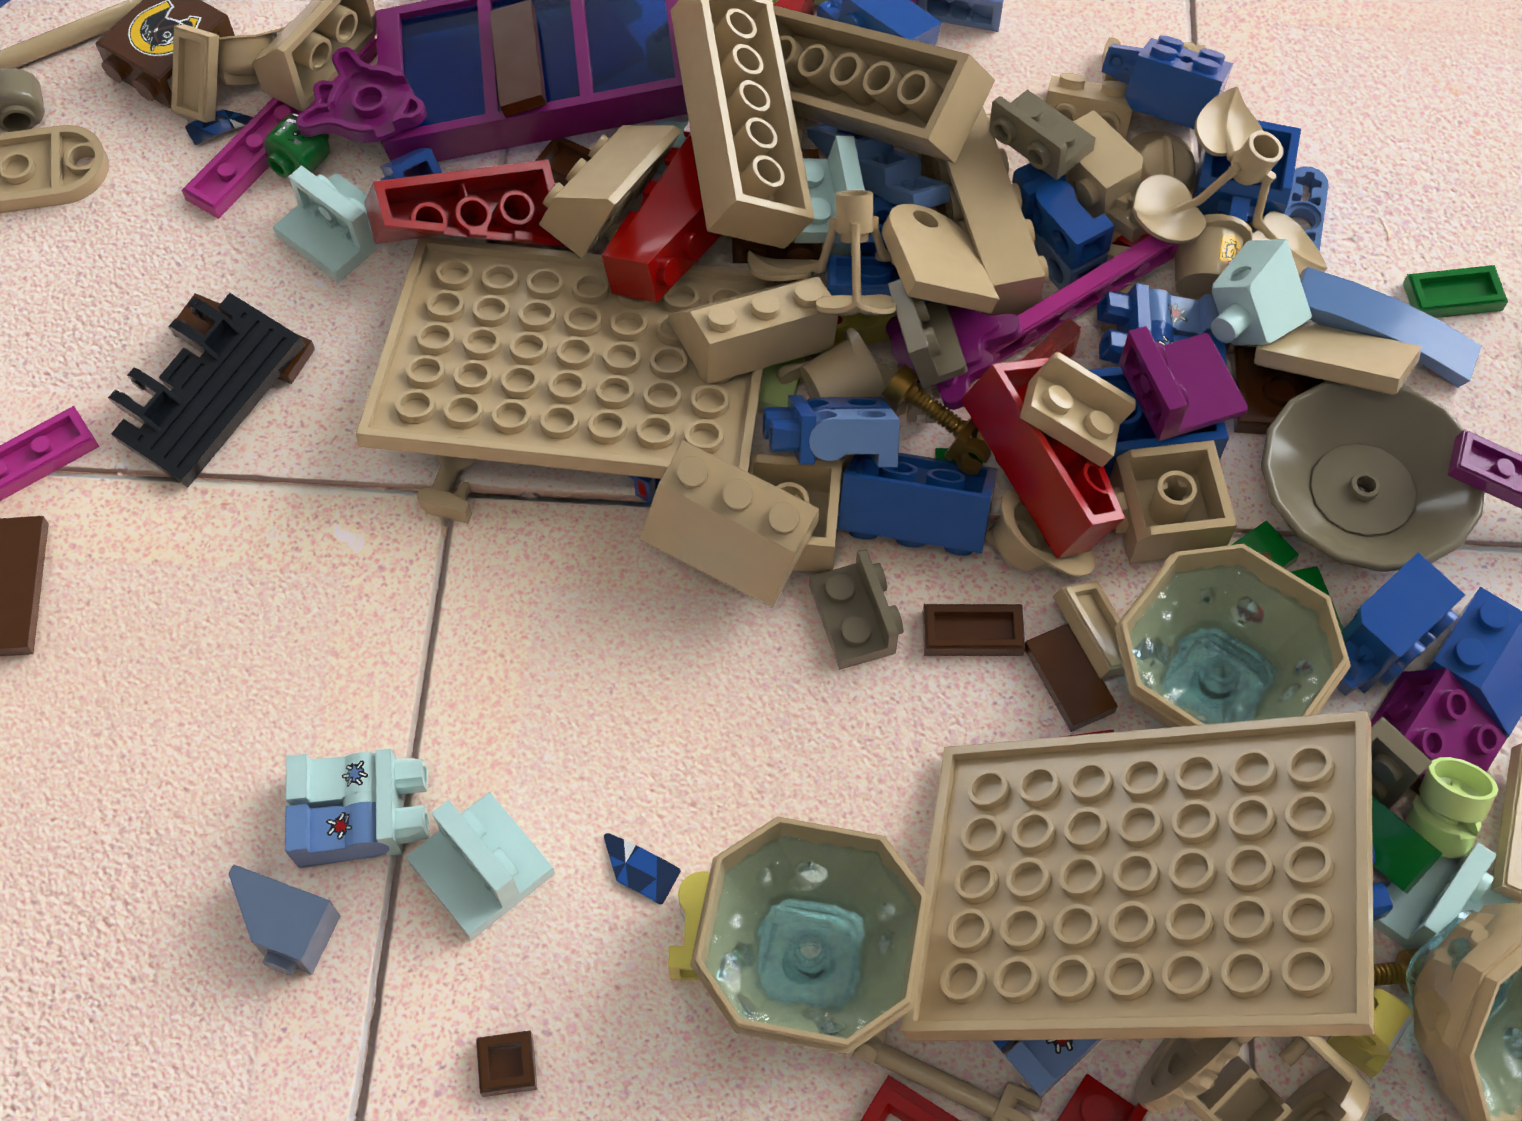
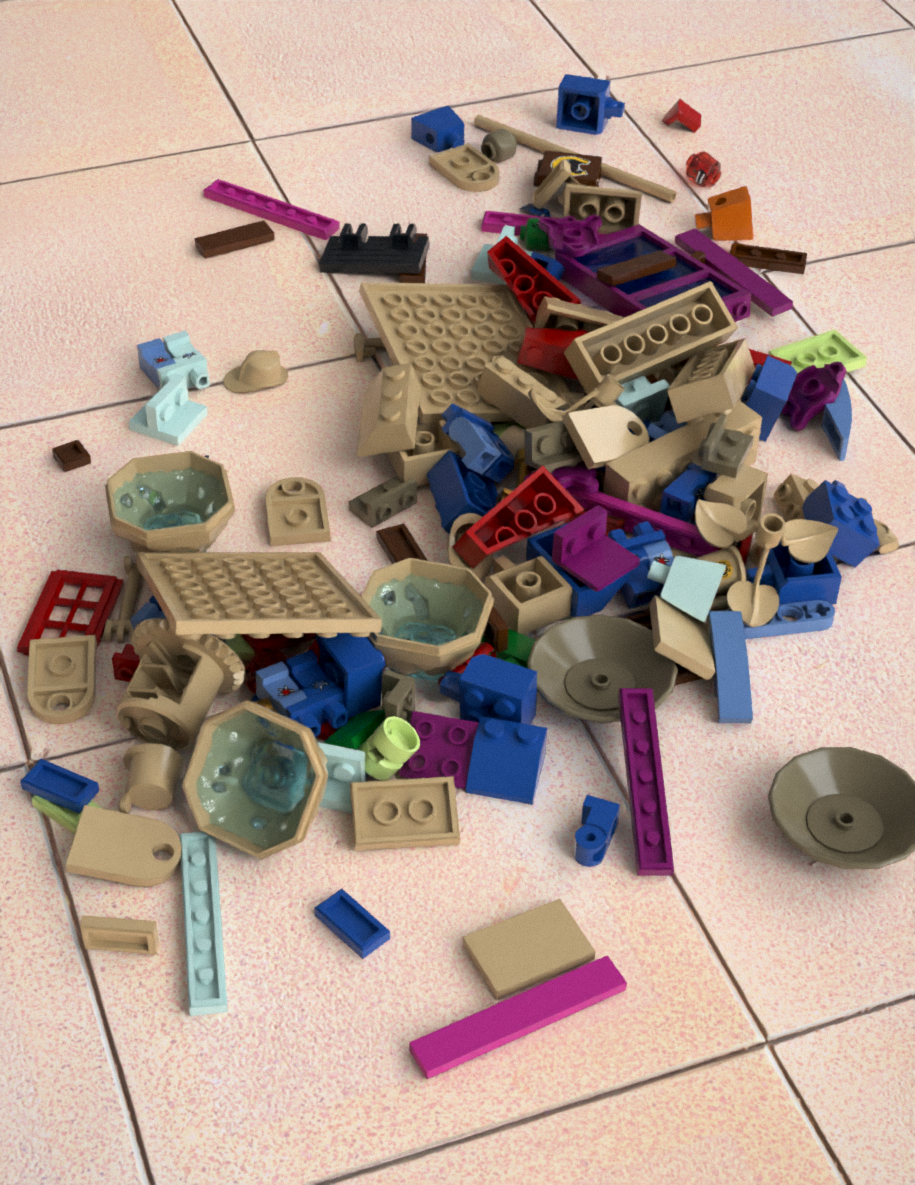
camera: 65 degrees right, 20 degrees down
(284, 921) = (105, 363): sand blue slope -> none
(431, 688) = (257, 372): none -> tan piece
(826, 748) = (296, 515): none -> tan tile
(1076, 408) = (538, 509): tan bracket -> none
(1456, 291) = (791, 703): green tile -> none

